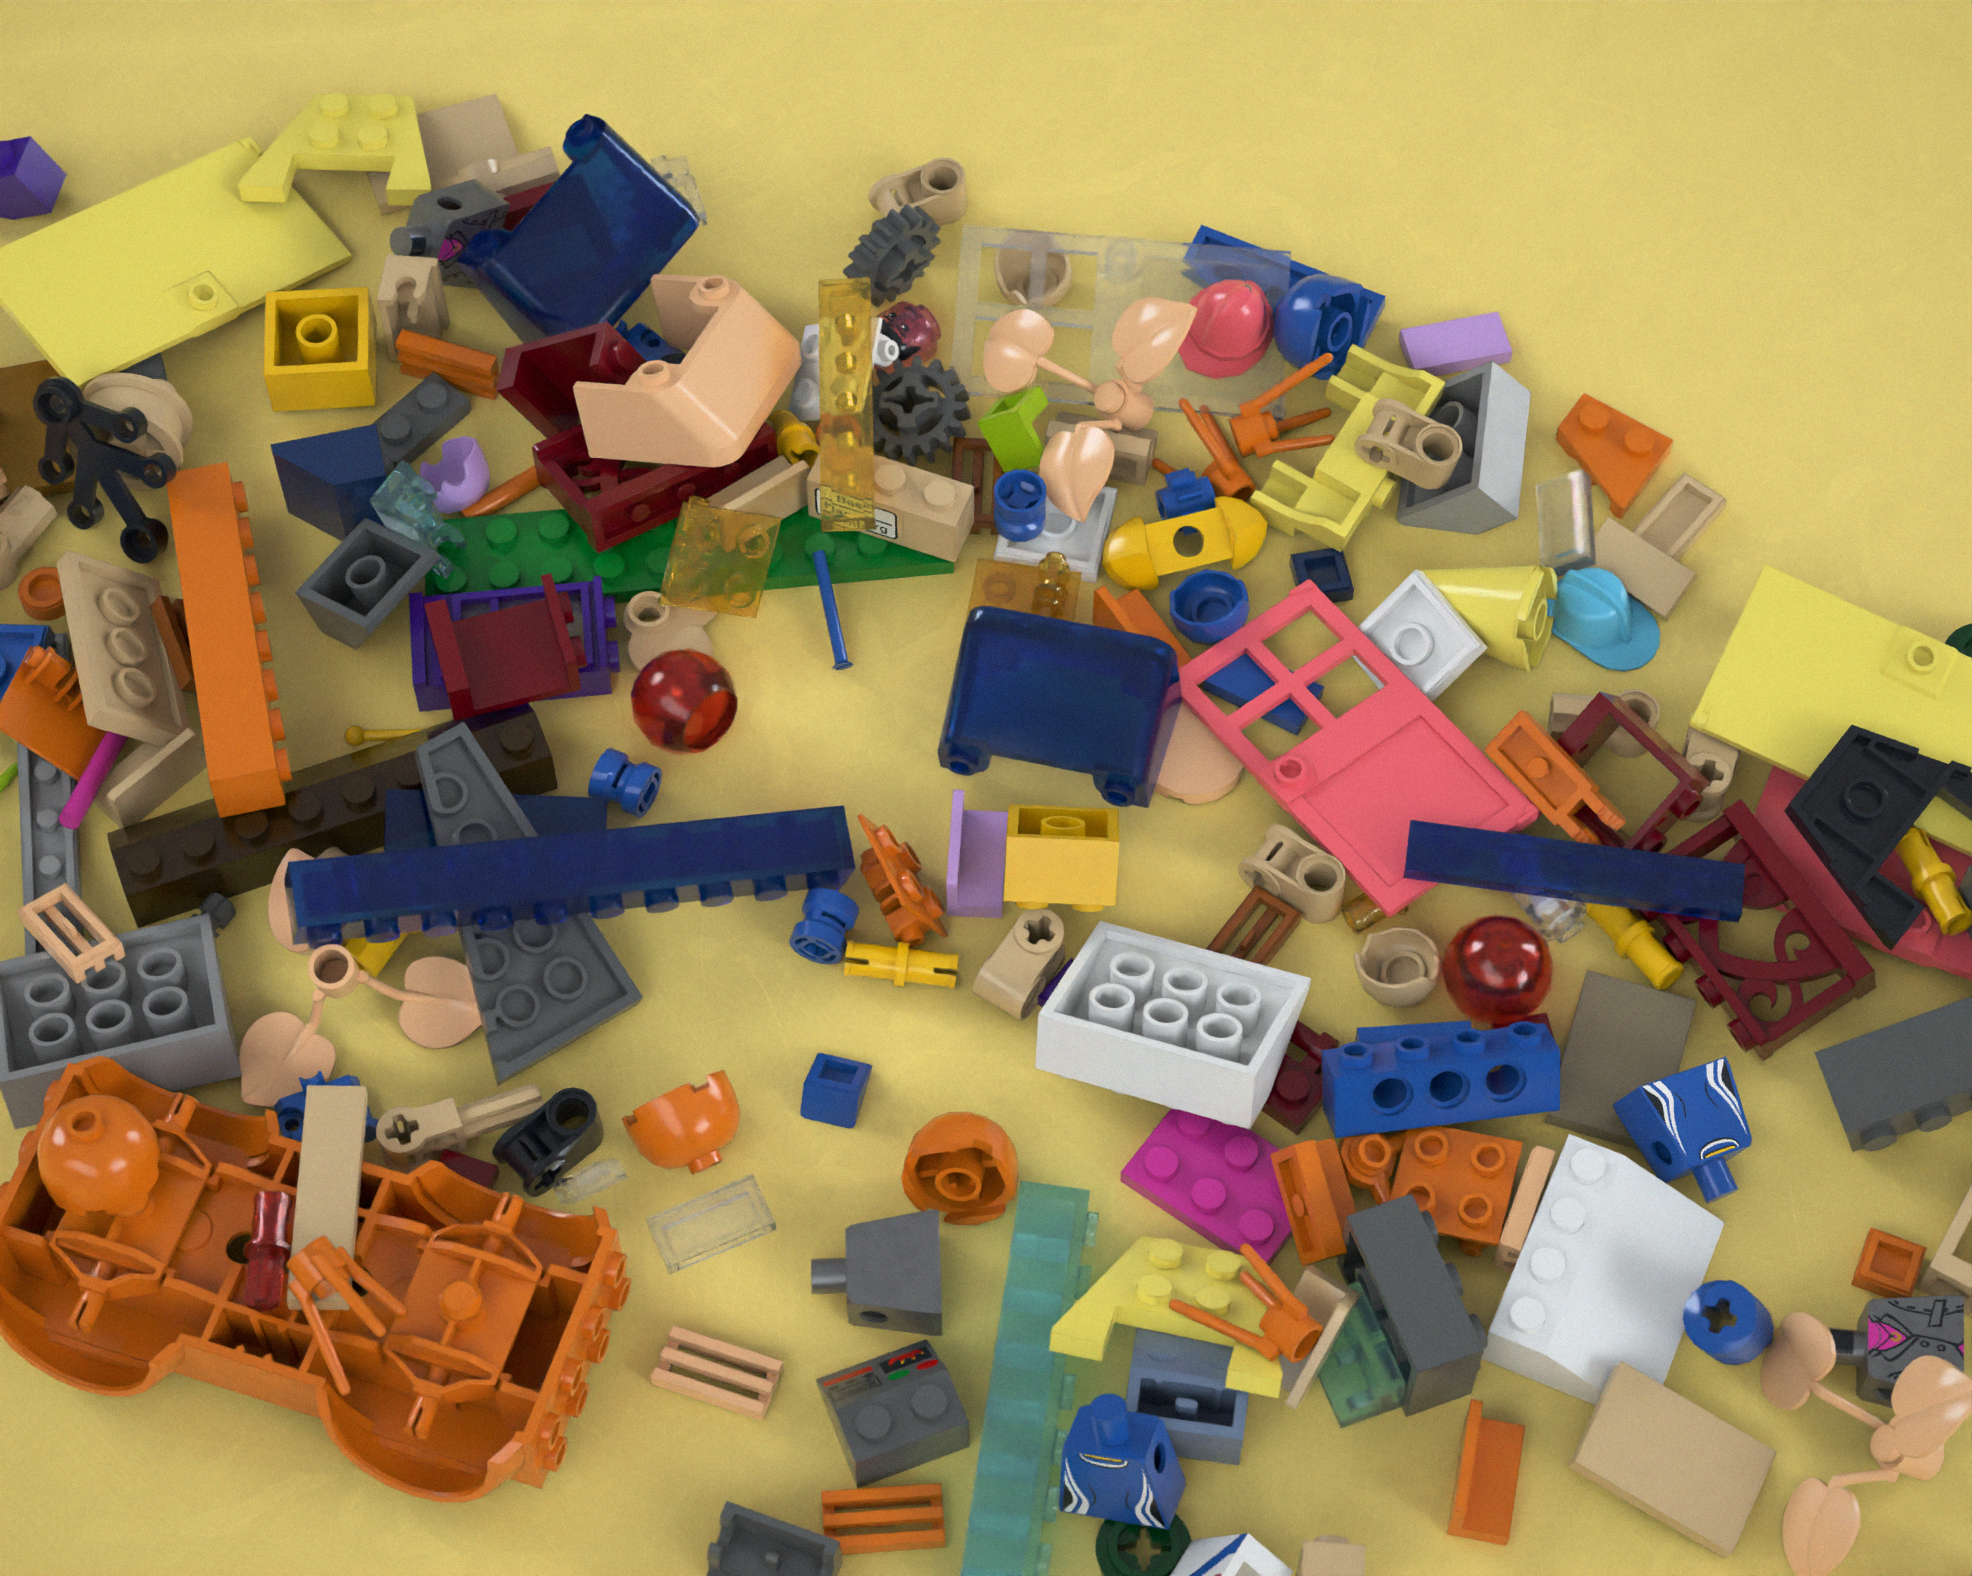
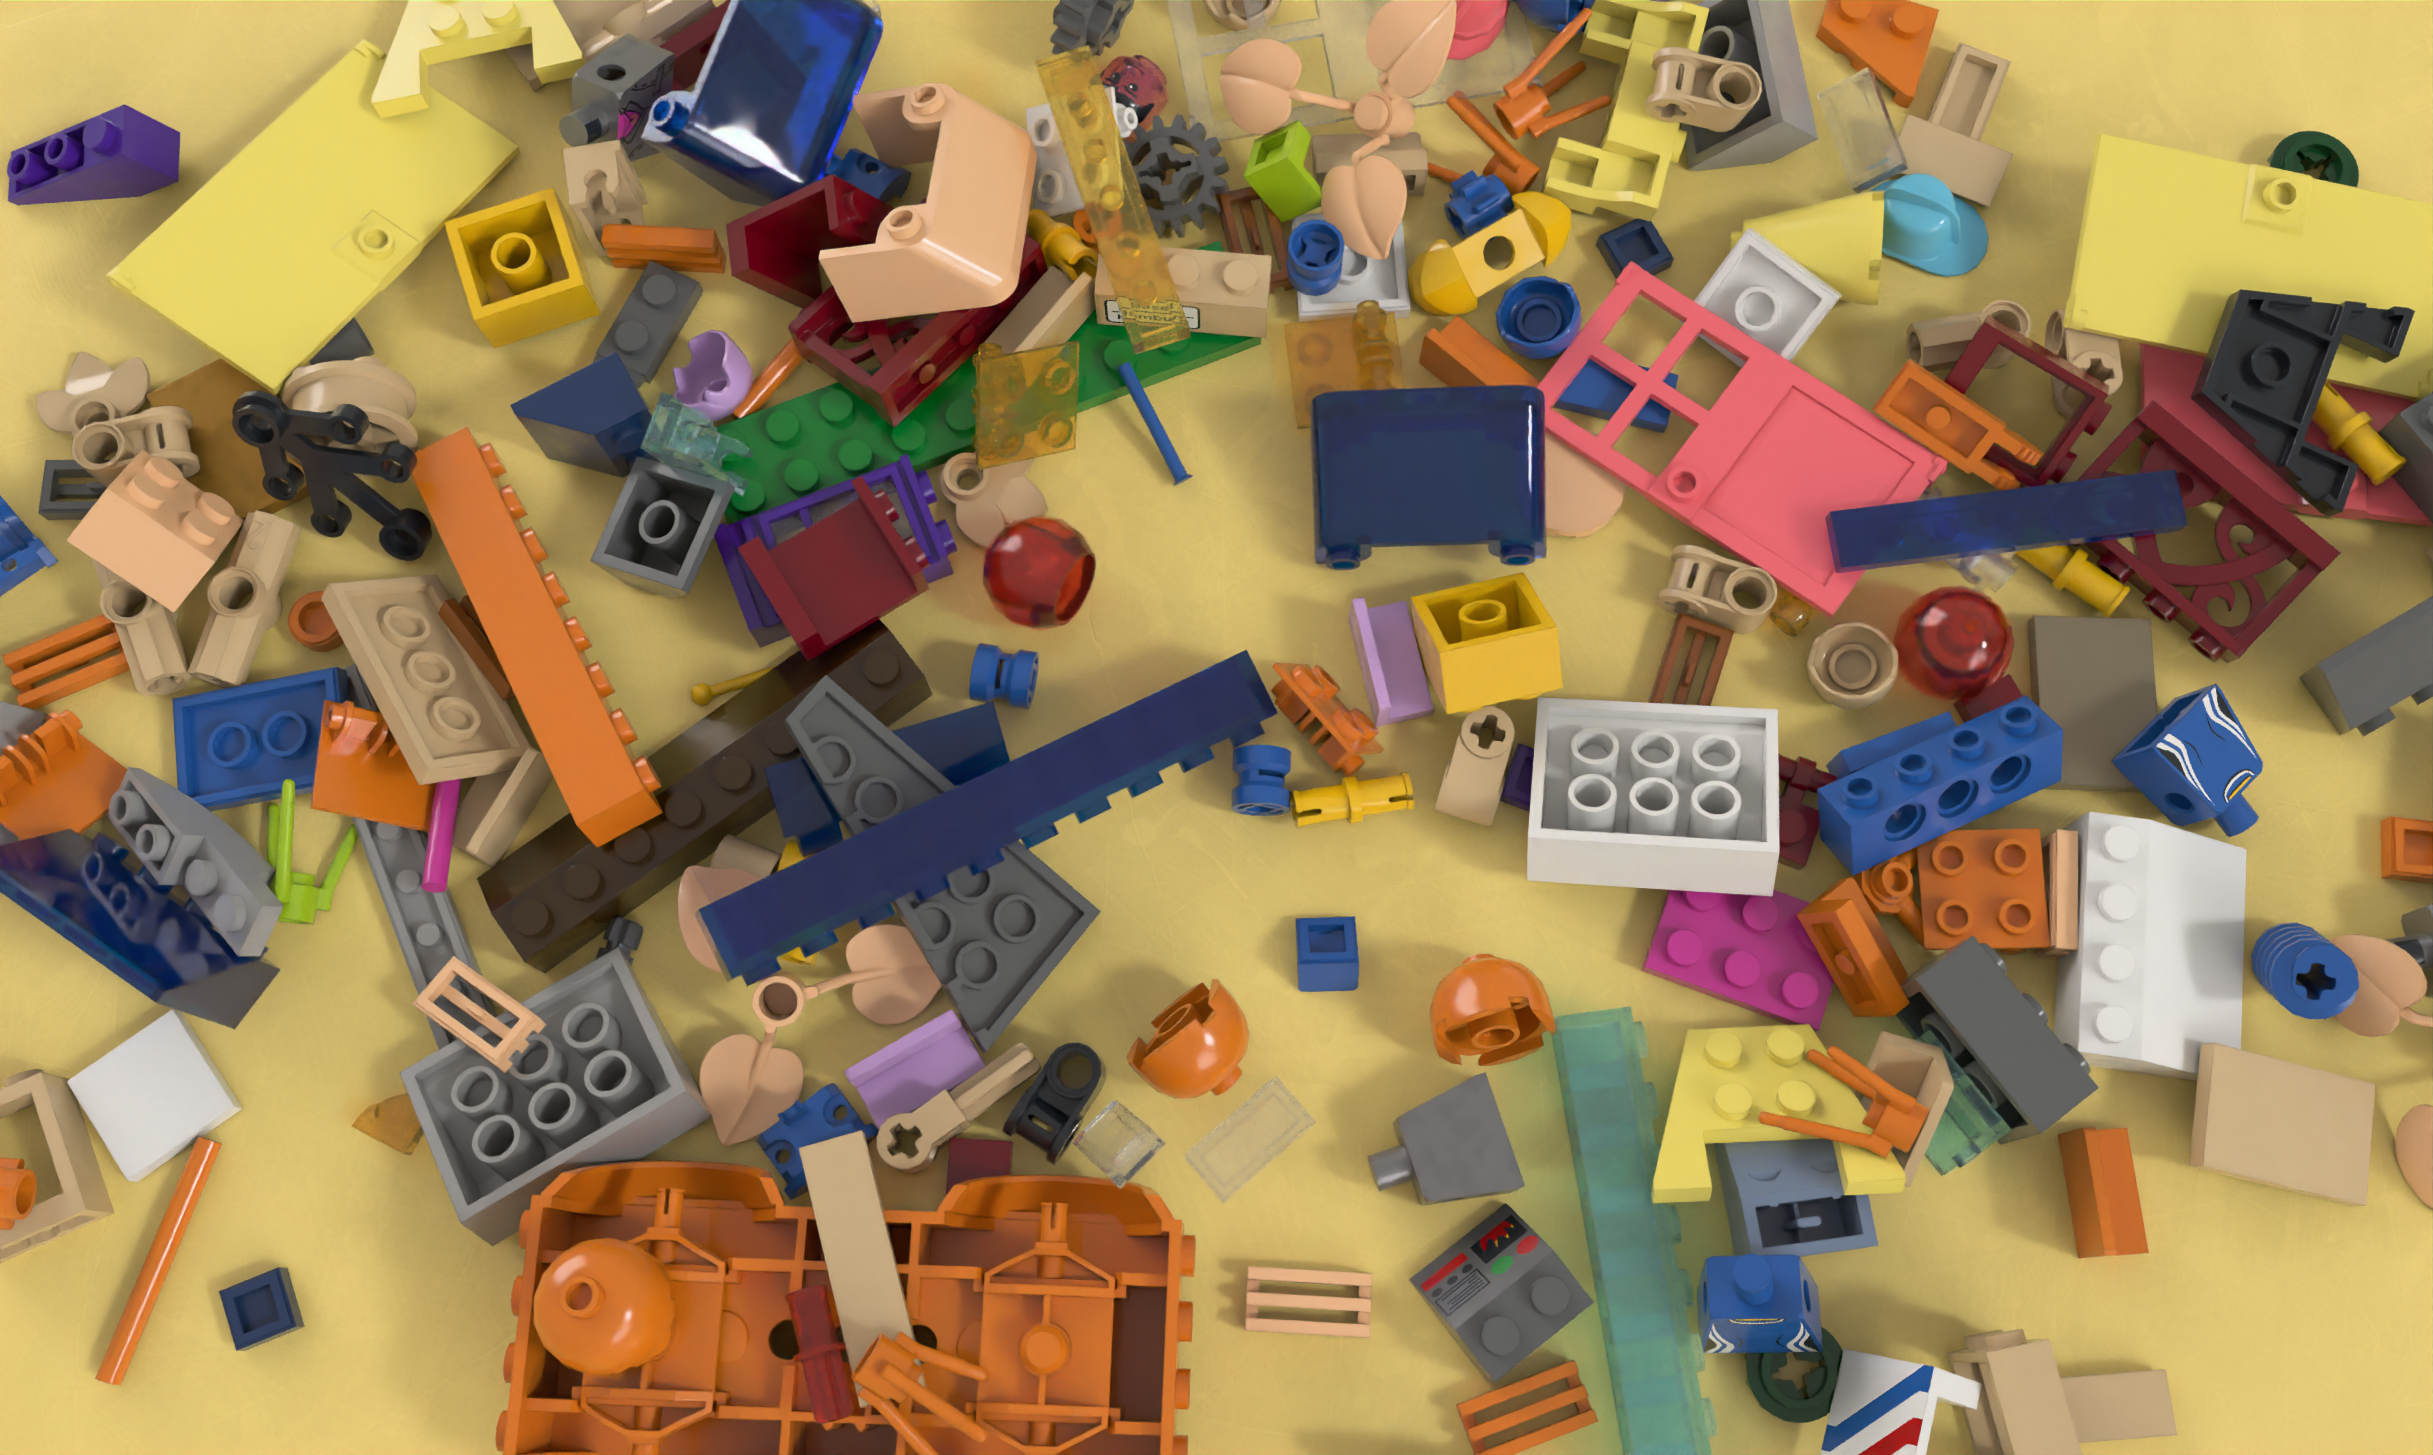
camera: 15 degrees left, 15 degrees up
(433, 1073) = (916, 1068): none -> lavender panel

